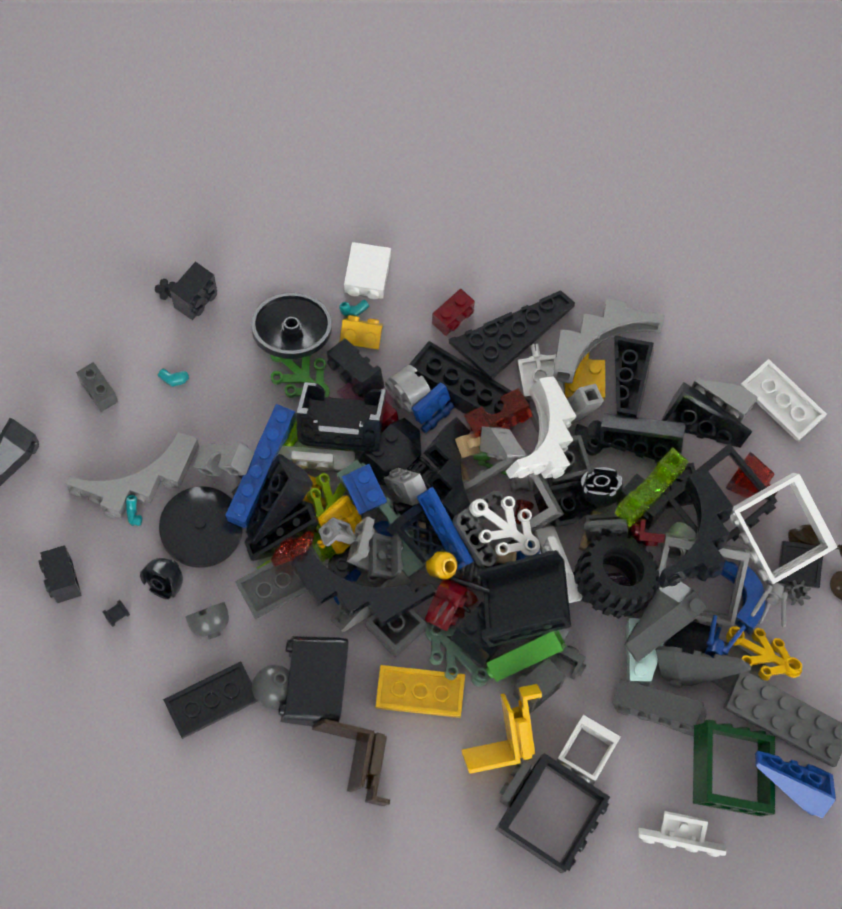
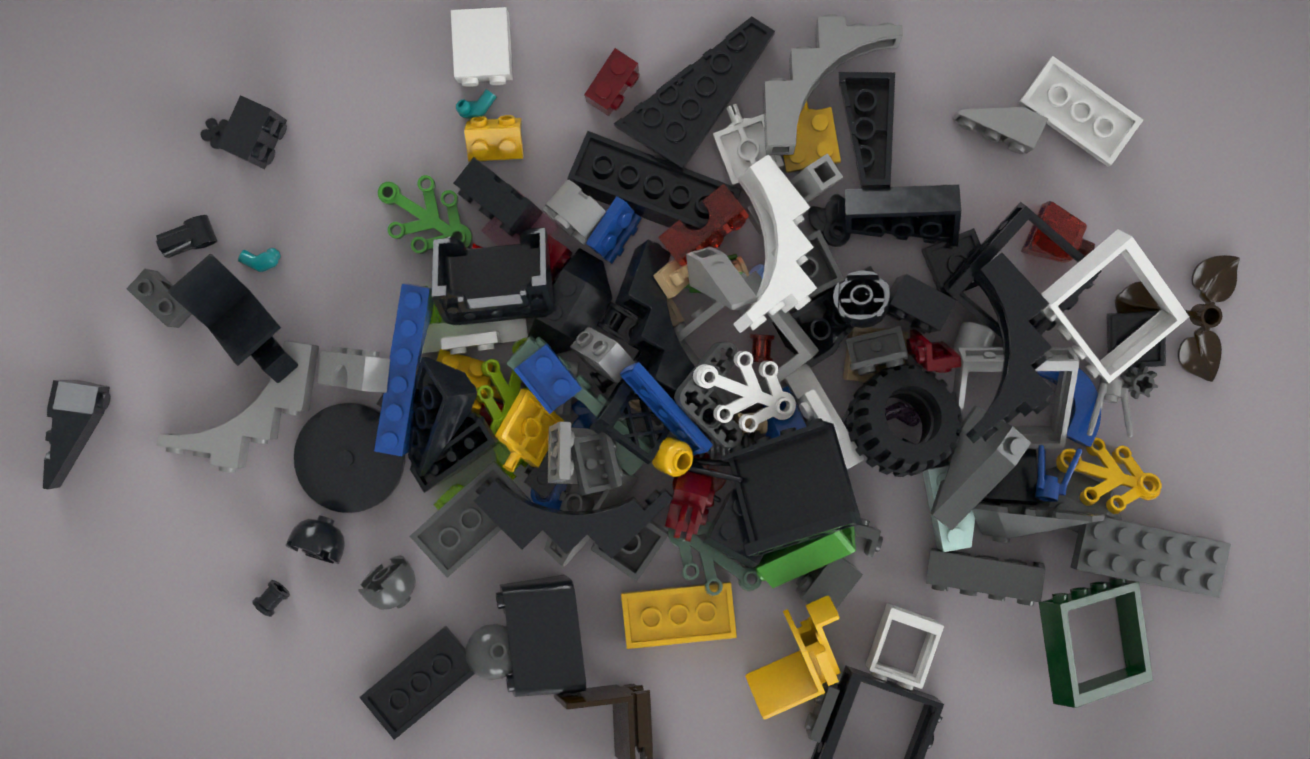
camera: 10 degrees left, 20 degrees up
(60, 574) = (184, 569): black brick -> none
(131, 509) = (255, 459): teal arm -> none
(132, 350) = (194, 234): none -> black piece
(146, 404) = (233, 316): none -> black piece
(291, 325) = (397, 153): black dish -> none
(291, 548) = (472, 483): clear red plate -> none
(336, 530) = (525, 450): light grey bracket -> none
(663, 475) = (941, 280): clear neon green arch -> none
(682, 832) = (1040, 725): white bracket -> none
(705, 417) = (972, 159): black wedge -> none
(807, 786) = (1181, 633): blue wedge -> none

